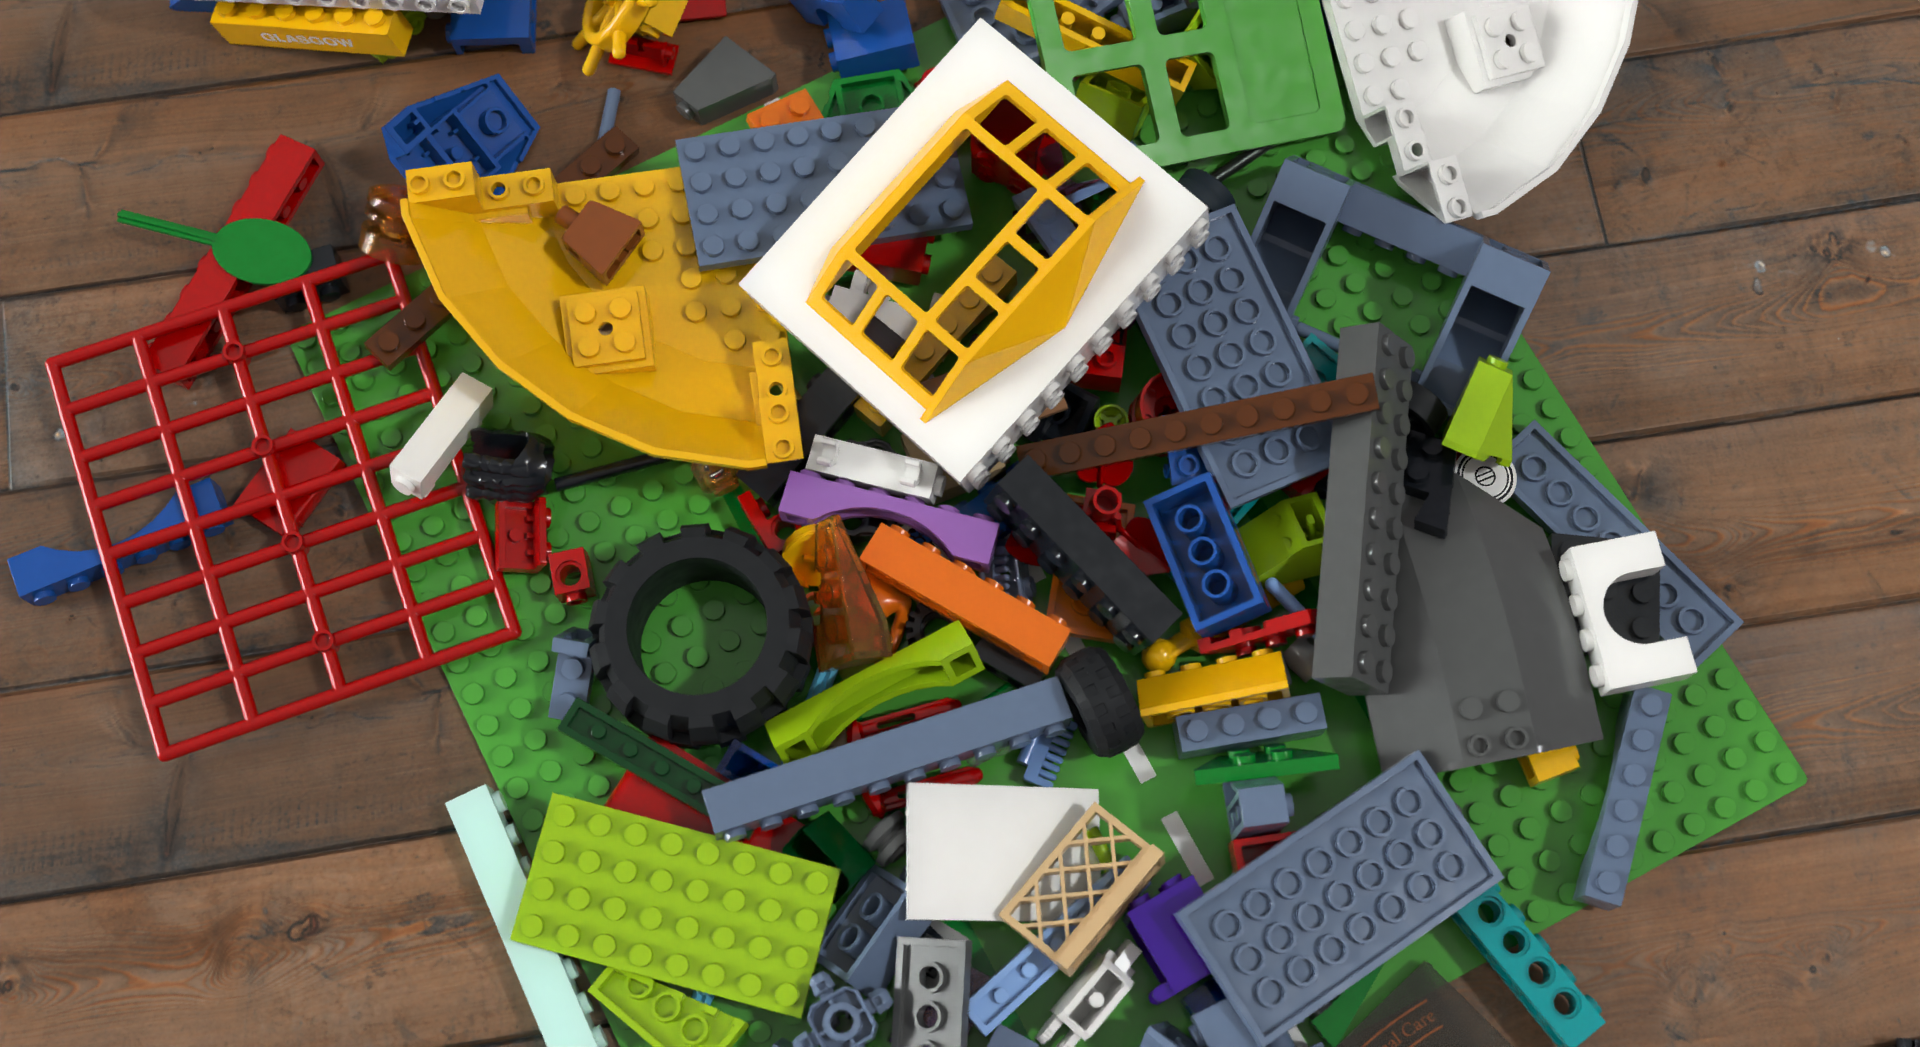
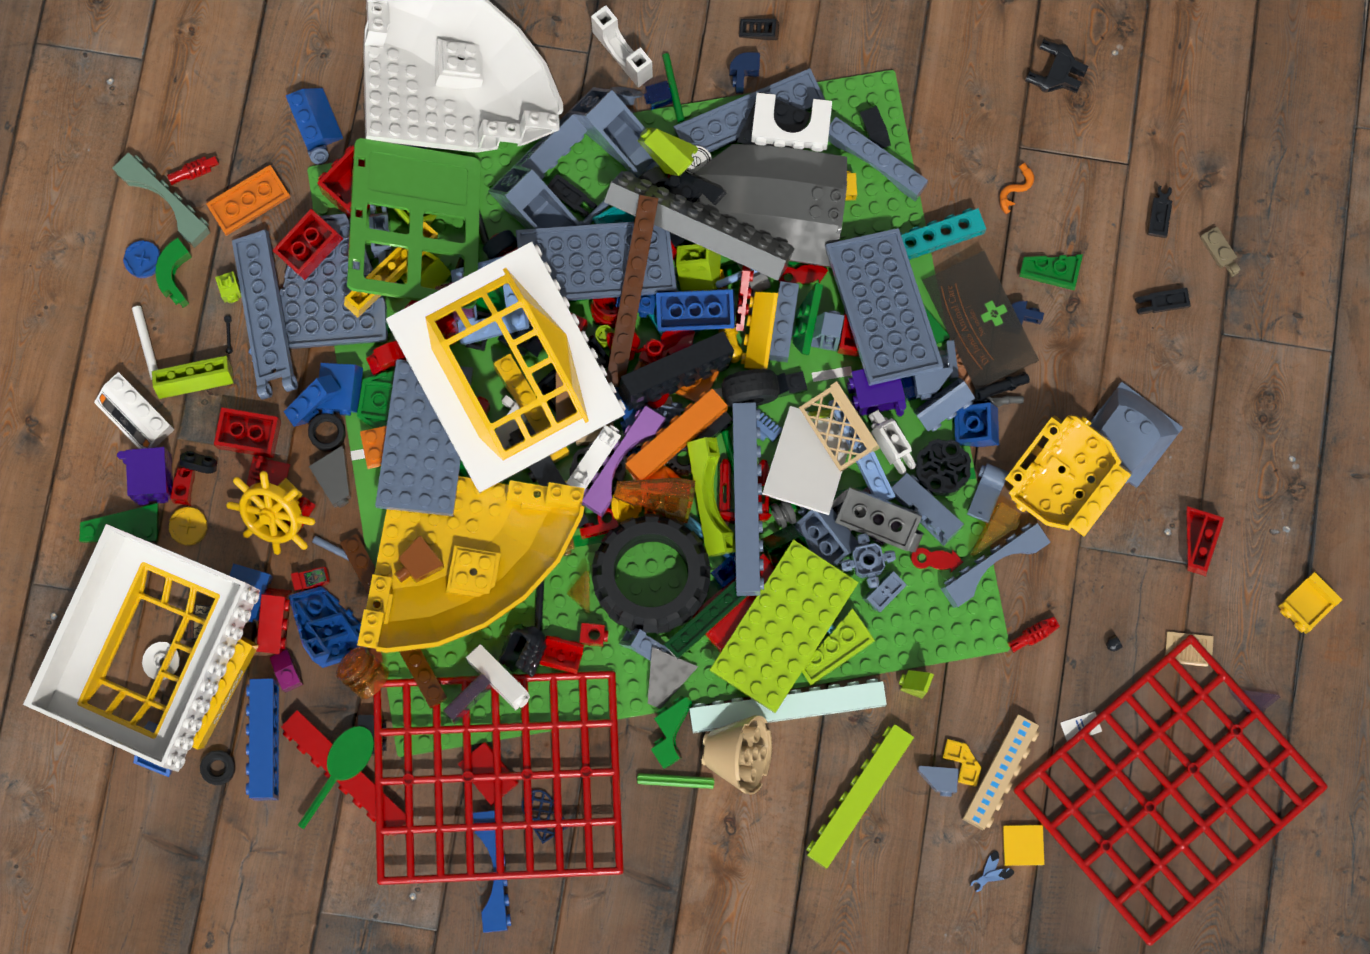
camera: 75 degrees left, 5 degrees up
(190, 54) = (206, 763): none -> black tyre
(200, 612) = (540, 810): none -> dark blue window
(251, 115) = (263, 739): none -> blue brick
(357, 805) = (673, 780): none -> bright green axle
(371, 113) = (285, 671): none -> magenta slope
(384, 393) = (467, 698): none -> clear purple piece
(419, 901) = (740, 752): none -> tan cone
(451, 758) = (670, 723): none -> green arch
(456, 64) = (273, 620): none -> red wedge
(530, 726) = (666, 676): none -> flat silver sticker
(541, 102) = (310, 579): none -> leg
(637, 530) = (581, 592): none -> clear yellow slope
(795, 27) = (326, 418): none -> black tyre
(1138, 776) = (791, 384): none -> black slope
(1340, 287) = (570, 195): none -> black hinge
(1352, 736) = (805, 274): none -> red brick
(1557, 325) = (627, 95): none -> sand blue piece
(1580, 379) = (658, 95): none -> clear blue brick
(1605, 400) = (673, 87): none -> green bar
(1646, 273) = (635, 64): none -> white arch
(1683, 776) = (874, 126): none -> black slope
(1697, 506) = (744, 65): none -> dark blue brick
(1783, 536) = (759, 35): none -> black slope

